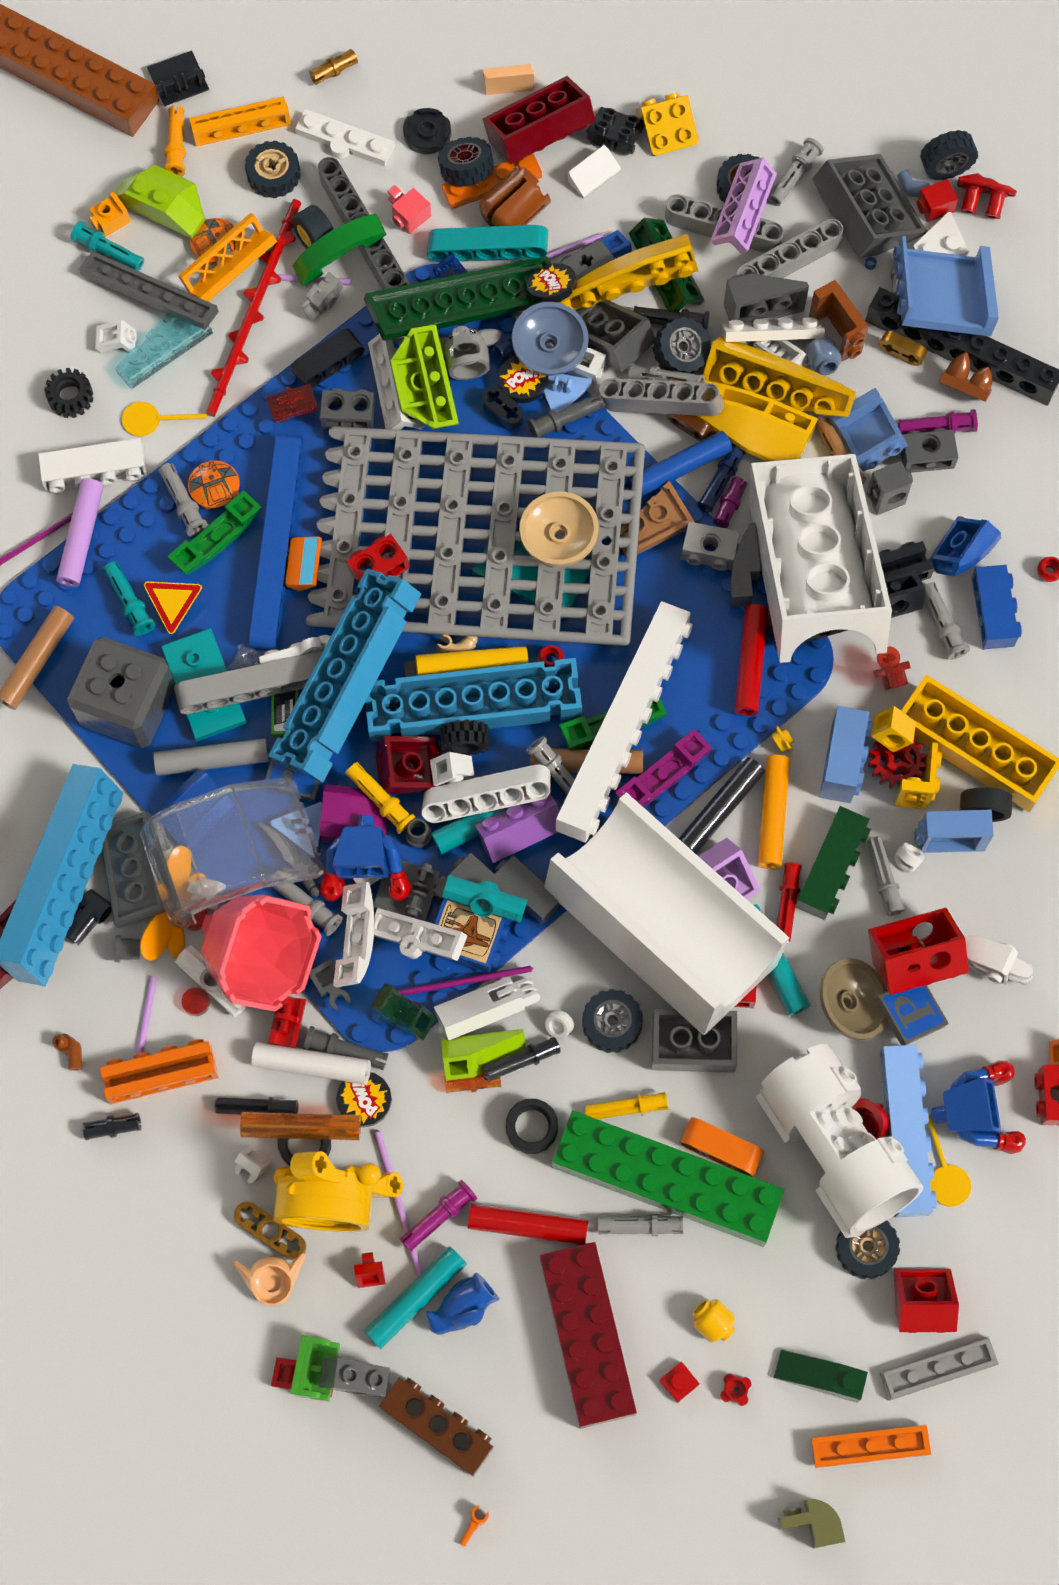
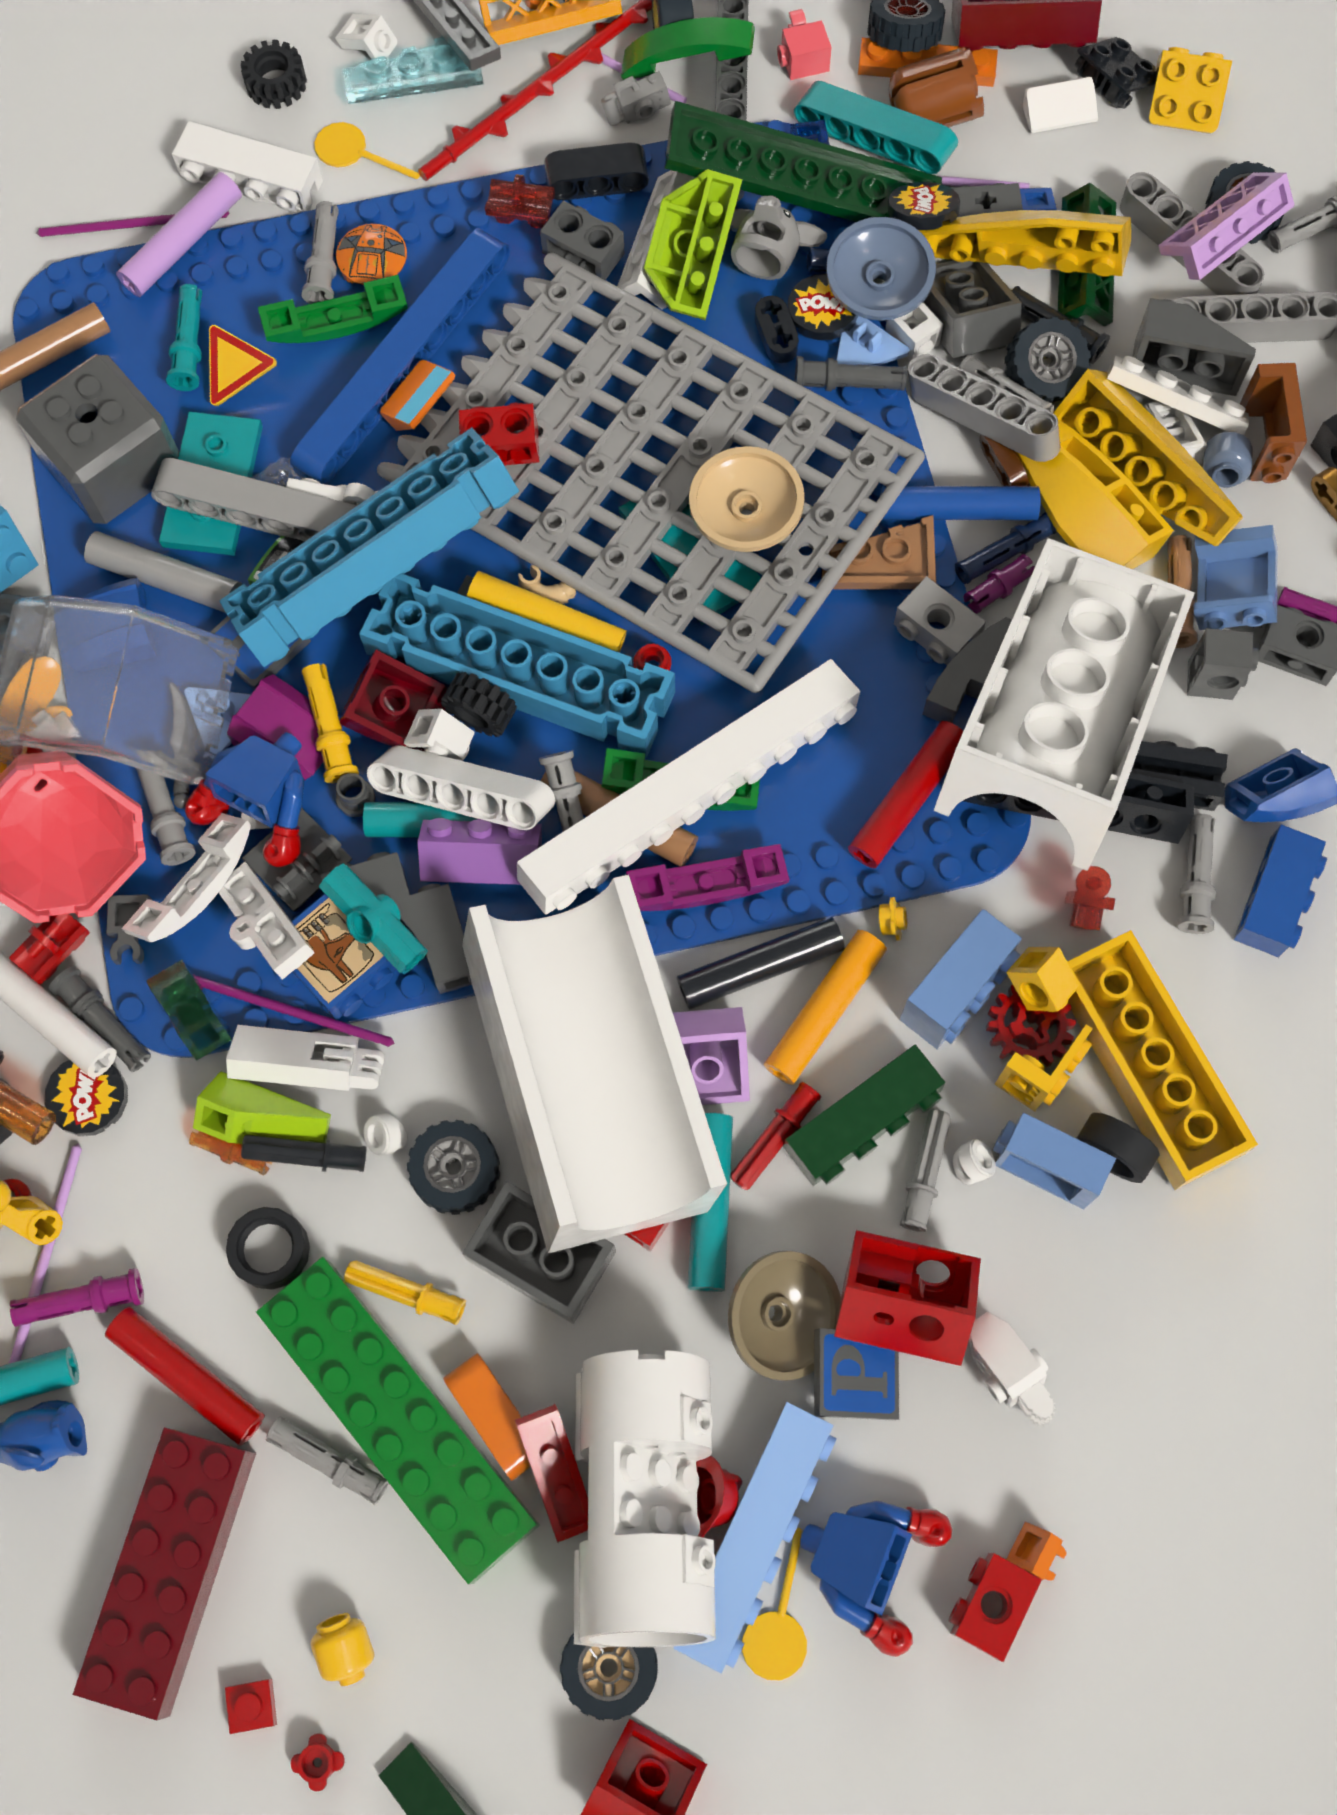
camera: 30 degrees right, 0 degrees up
(777, 1156) = (555, 1471): none -> red plate

